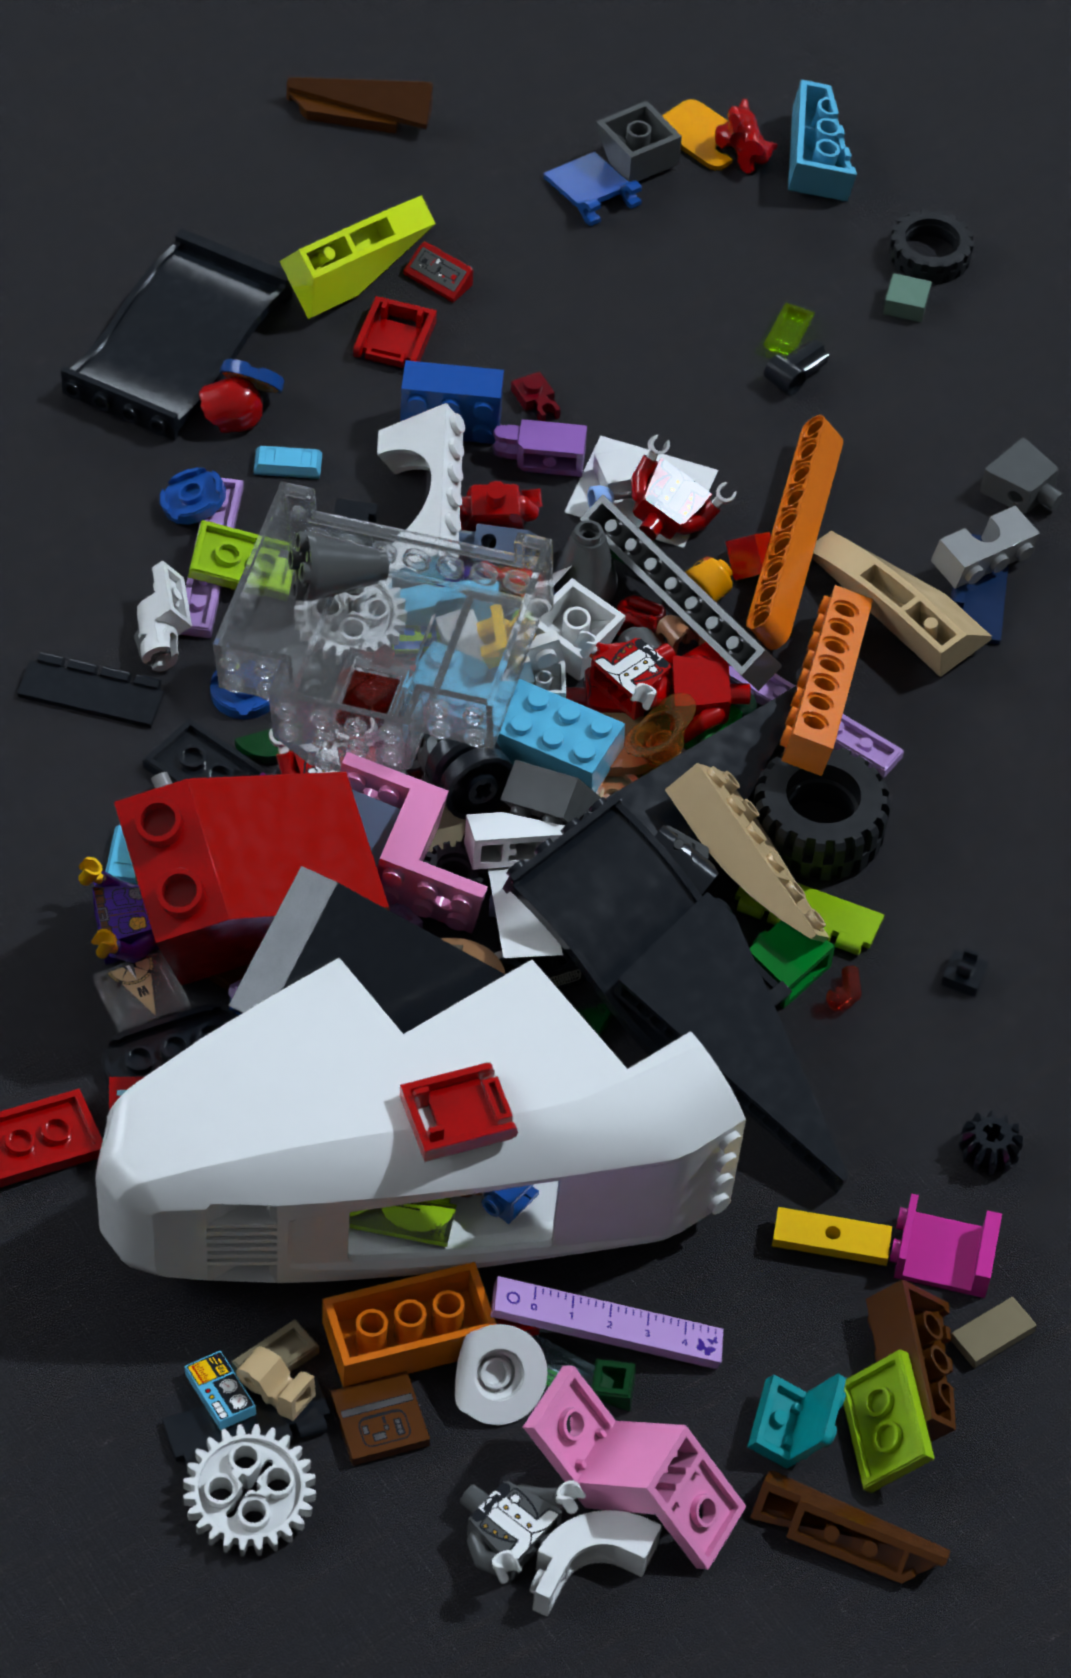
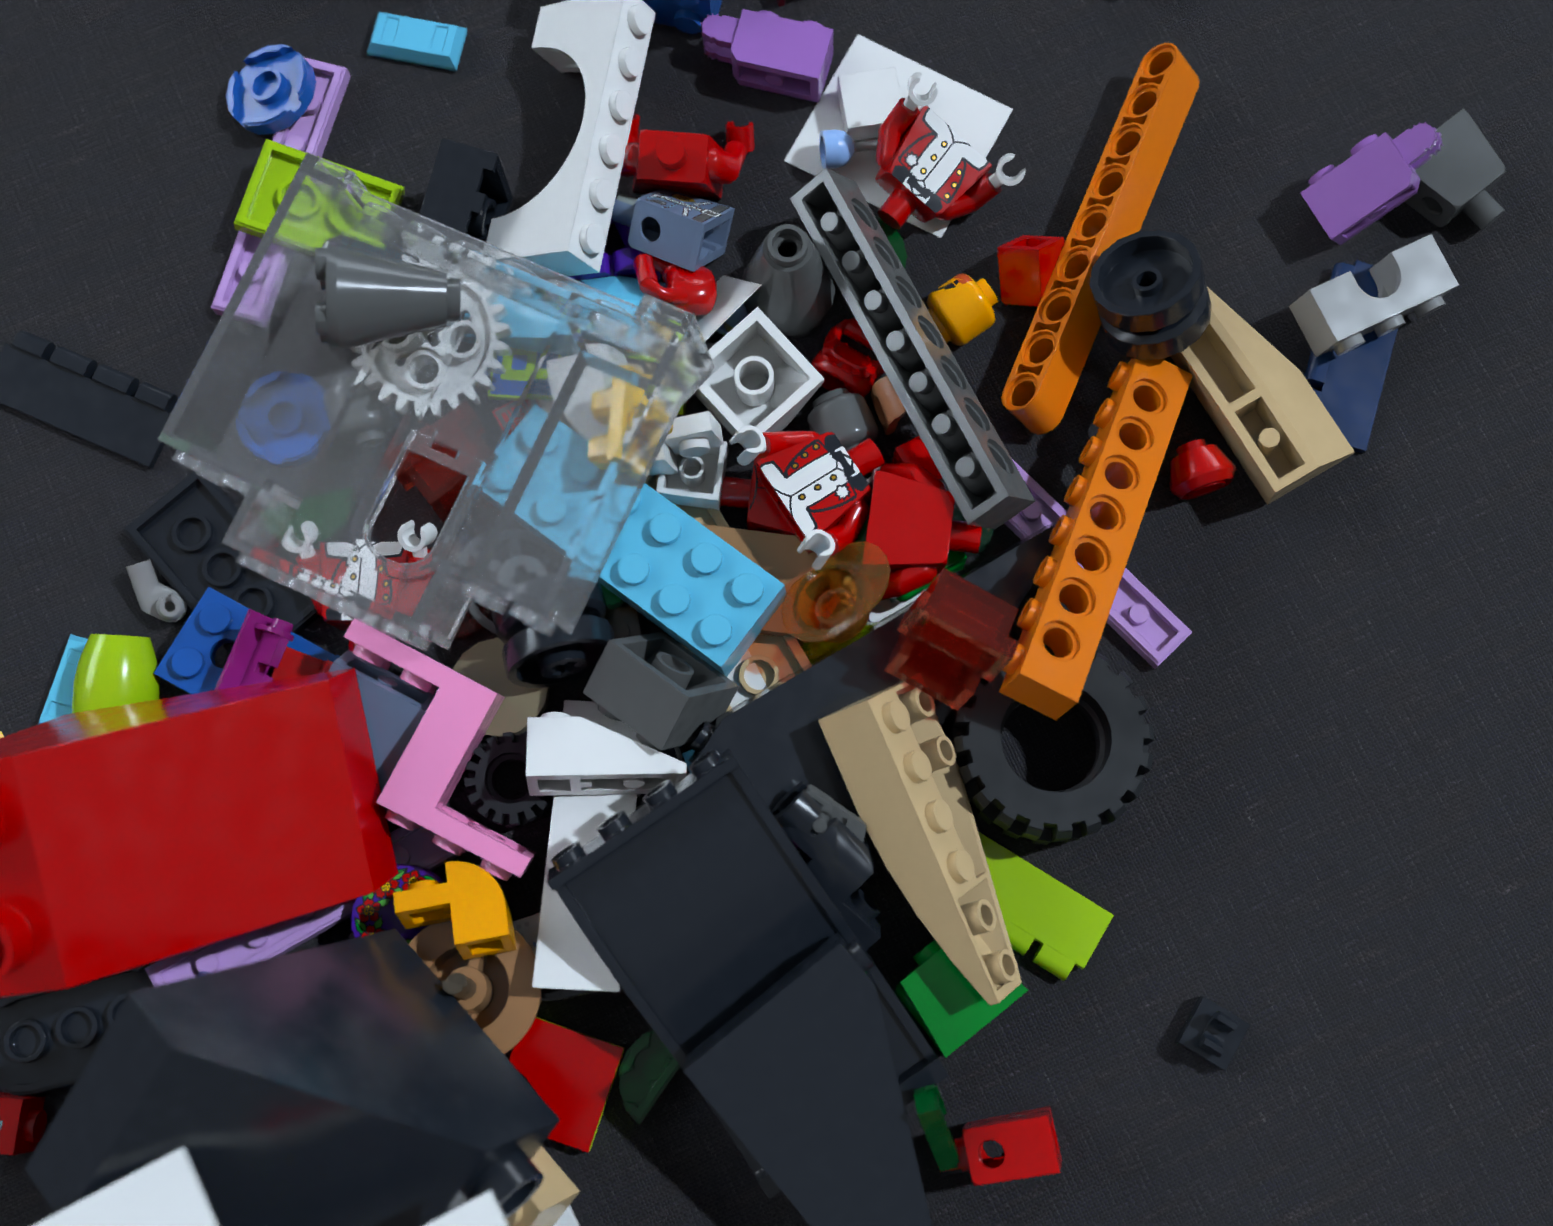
camera: 15 degrees right, 25 degrees up
(162, 619) = (189, 295): white plate -> none
(450, 920) = (469, 900): none -> light orange brick
(744, 734) = (953, 640): none -> clear red plate
(789, 1012) = (930, 1112): none -> dark green tile
(835, 549) = (1151, 294): none -> black wheel
(840, 1035) = (1027, 1141): none -> red torso
(848, 994) = (1037, 1050): clear red arm -> none
(890, 657) = (1199, 470): none -> red cone
(969, 481) = (1370, 181): none -> medium lavender hinge

